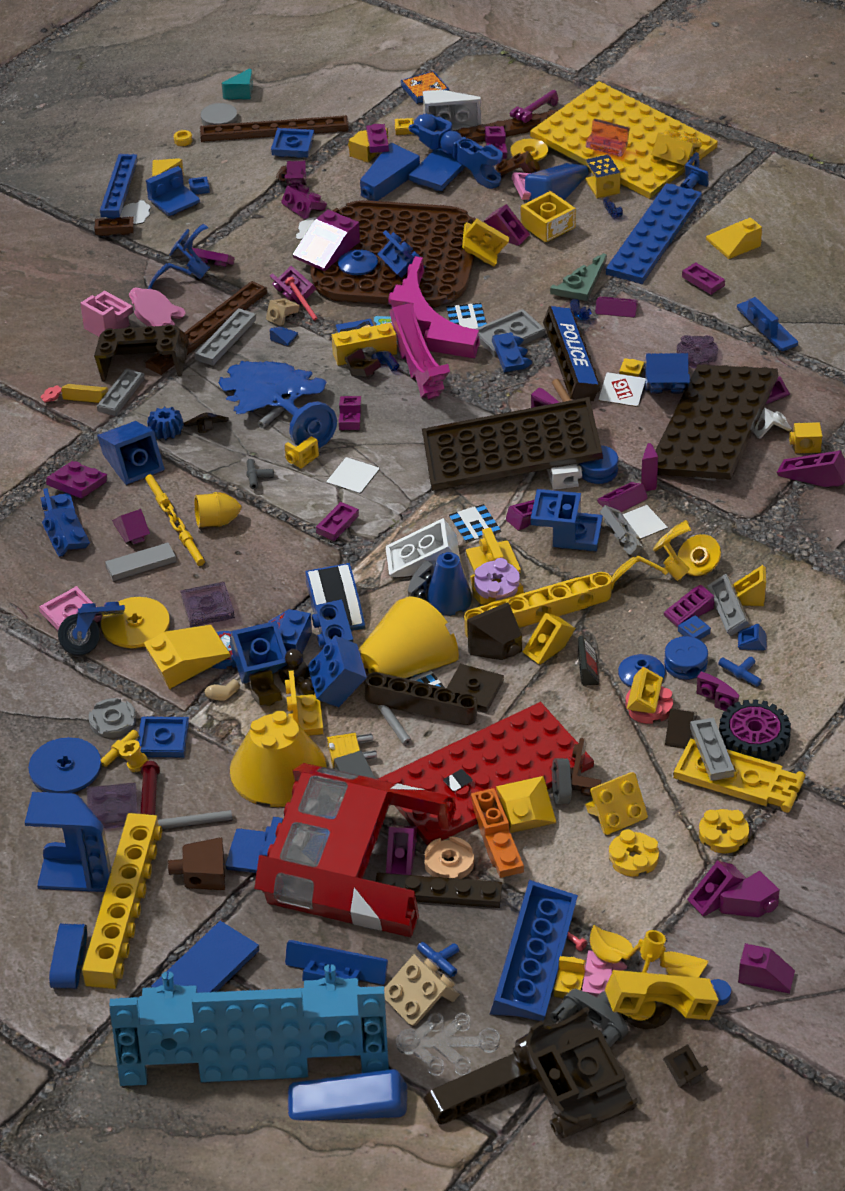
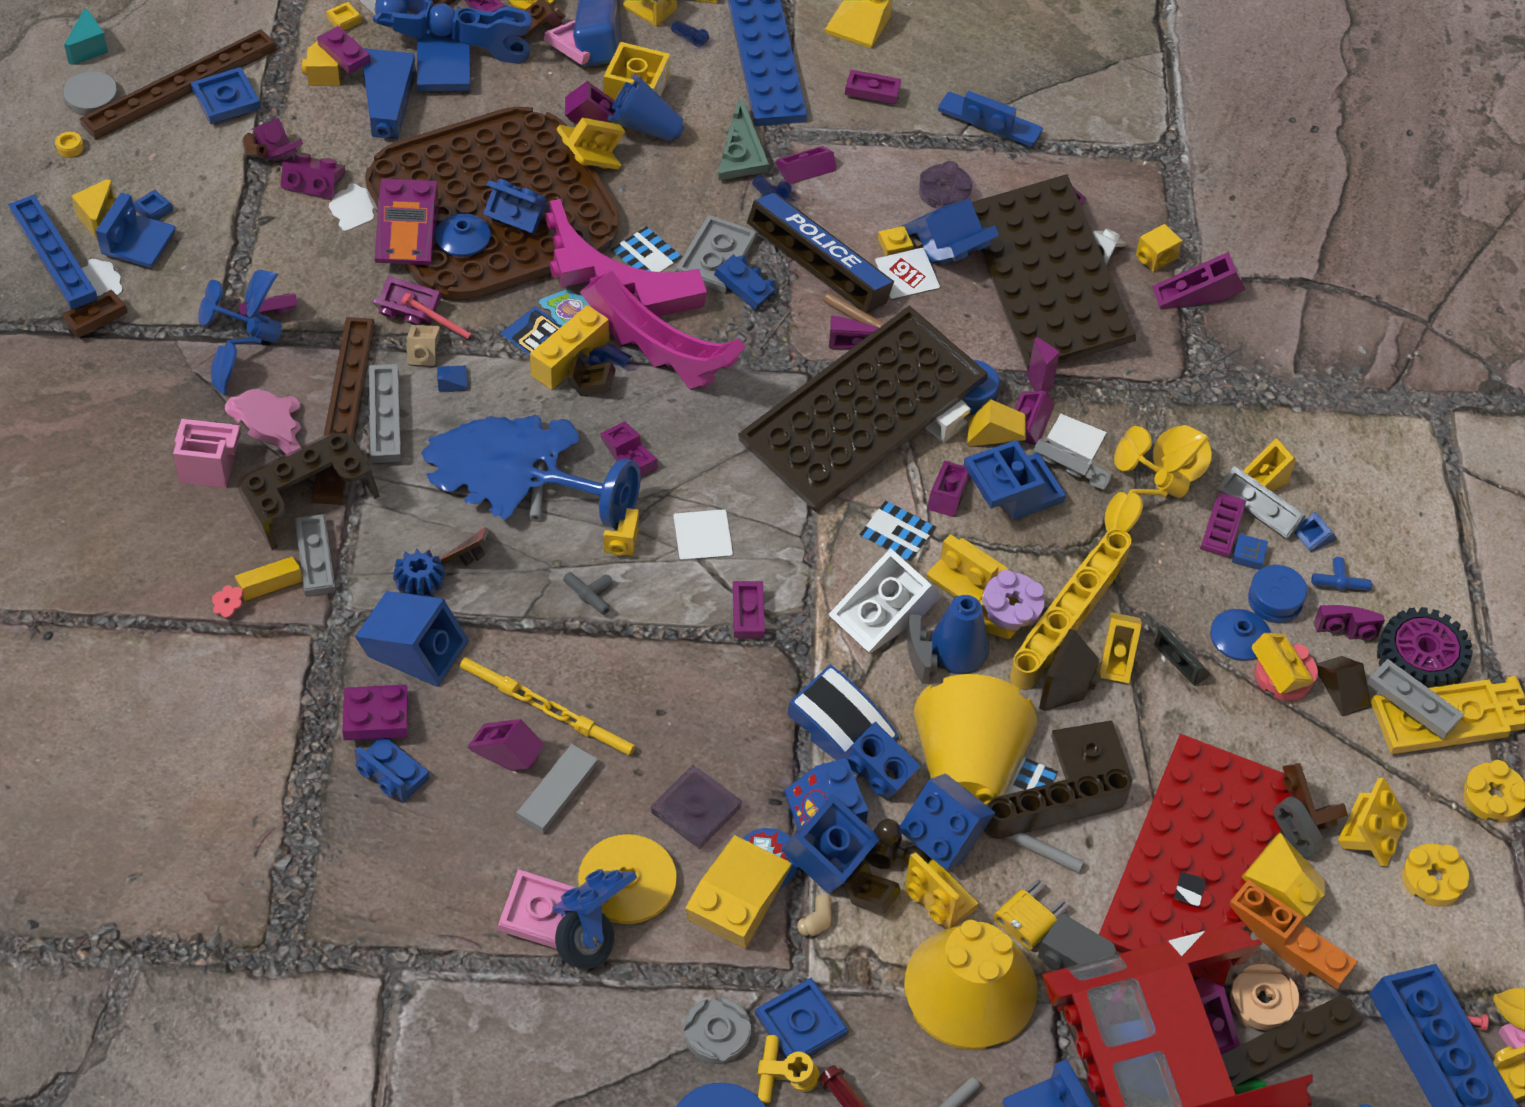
camera: 40 degrees left, 10 degrees up
(65, 530) = (431, 797): blue bracket -> none
(215, 509) = (600, 665): yellow helmet -> none
(531, 235) = (645, 111): none -> blue cone
(592, 488) = (996, 424): none -> yellow slope

